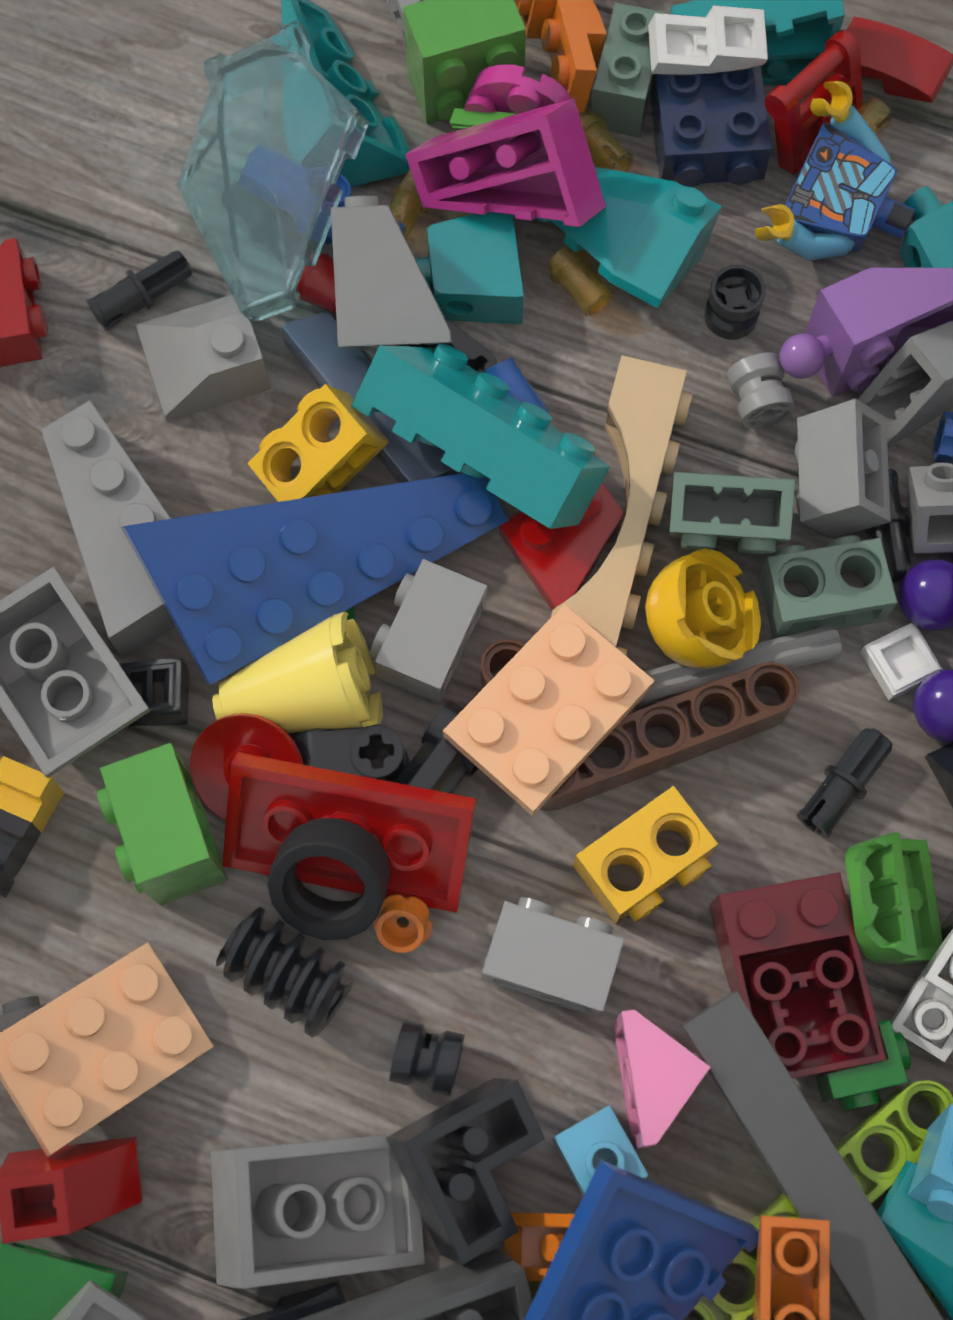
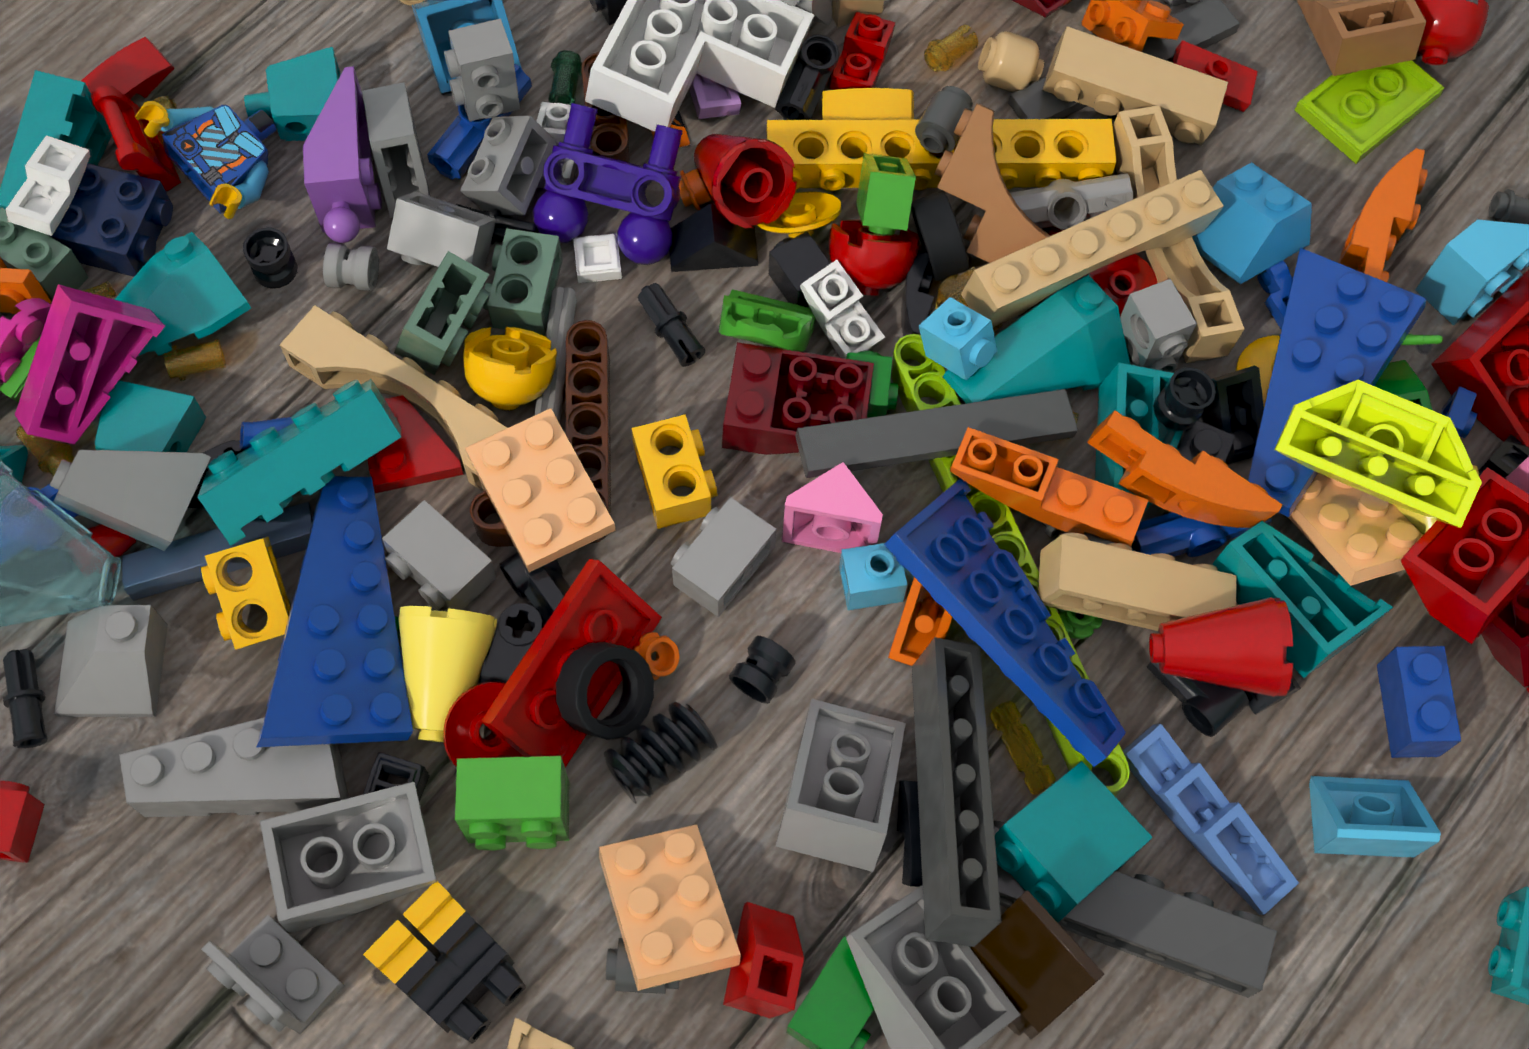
camera: 75 degrees left, 5 degrees down
(450, 1163) = (849, 671): black brick -> none

